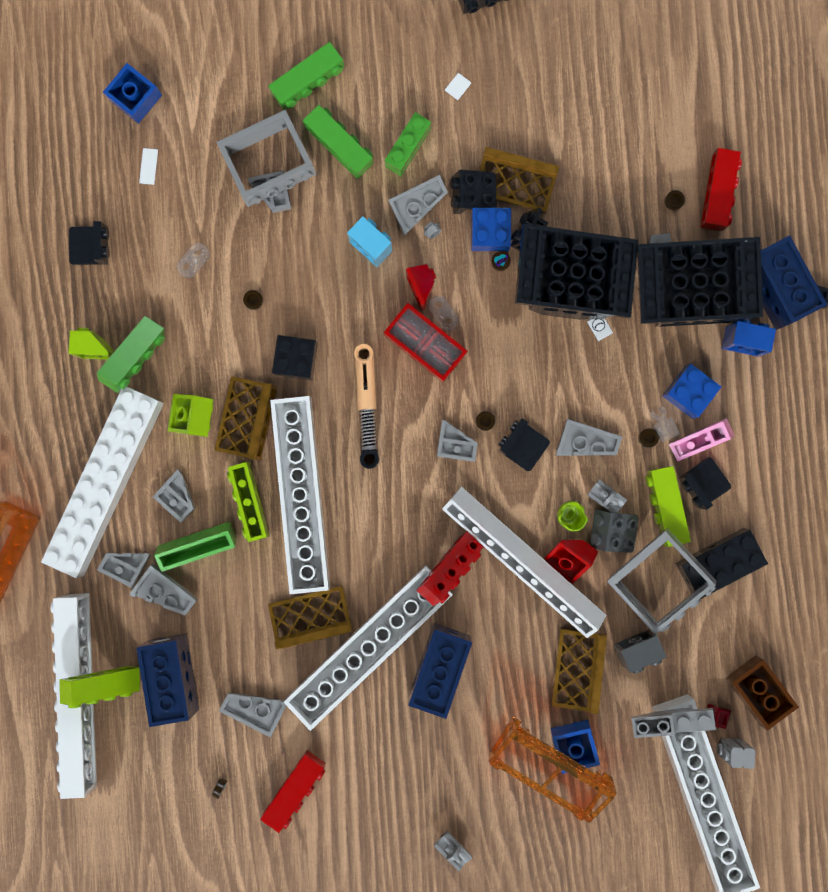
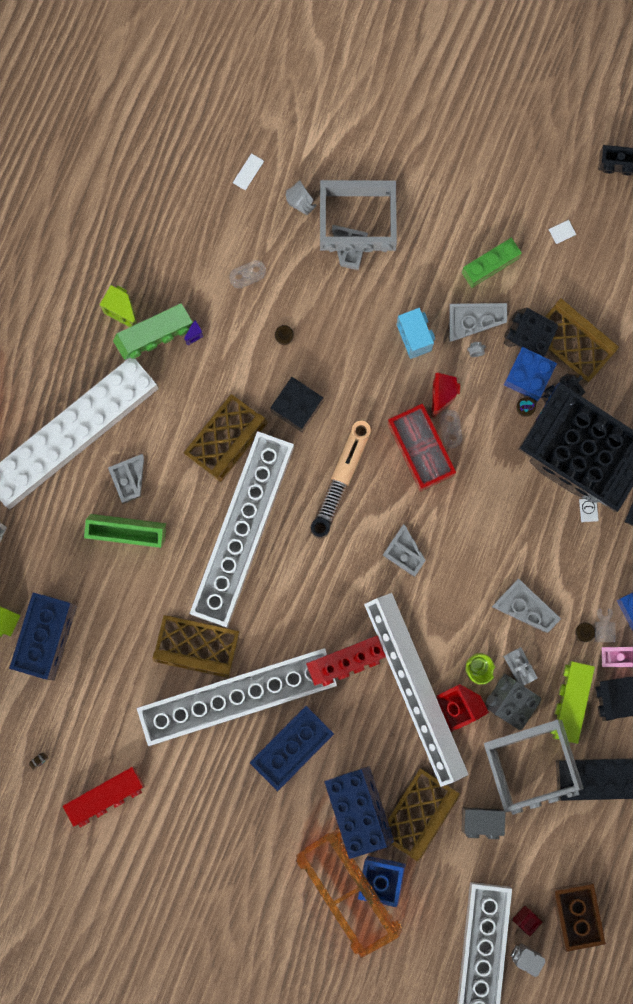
camera: 25 degrees right, 5 degrees down
(89, 244) = (161, 216): black bracket -> none
(123, 566) = (51, 518): light grey wing -> none
(132, 93) = (266, 102): blue brick -> none
(163, 590) = (75, 557): light grey wing -> none
(170, 338) = (193, 334): none -> dark purple slope
(190, 415) = (177, 410): lime slope -> none
(206, 168) = (299, 198): none -> light grey hair
(248, 502) = (192, 513): lime brick -> none
(254, 711) = (104, 707): light grey wing -> none
(307, 76) = (429, 159): bright green brick -> none
(338, 141) = (429, 230): bright green brick -> none
(452, 850) = (223, 923): light grey hips -> none
(485, 421) = (442, 544): dark brown tile -> none
(523, 445) = (466, 583): black bracket -> none
(527, 698) = (359, 812): none -> dark blue piece
(673, 721) = (482, 898): light grey slope -> none

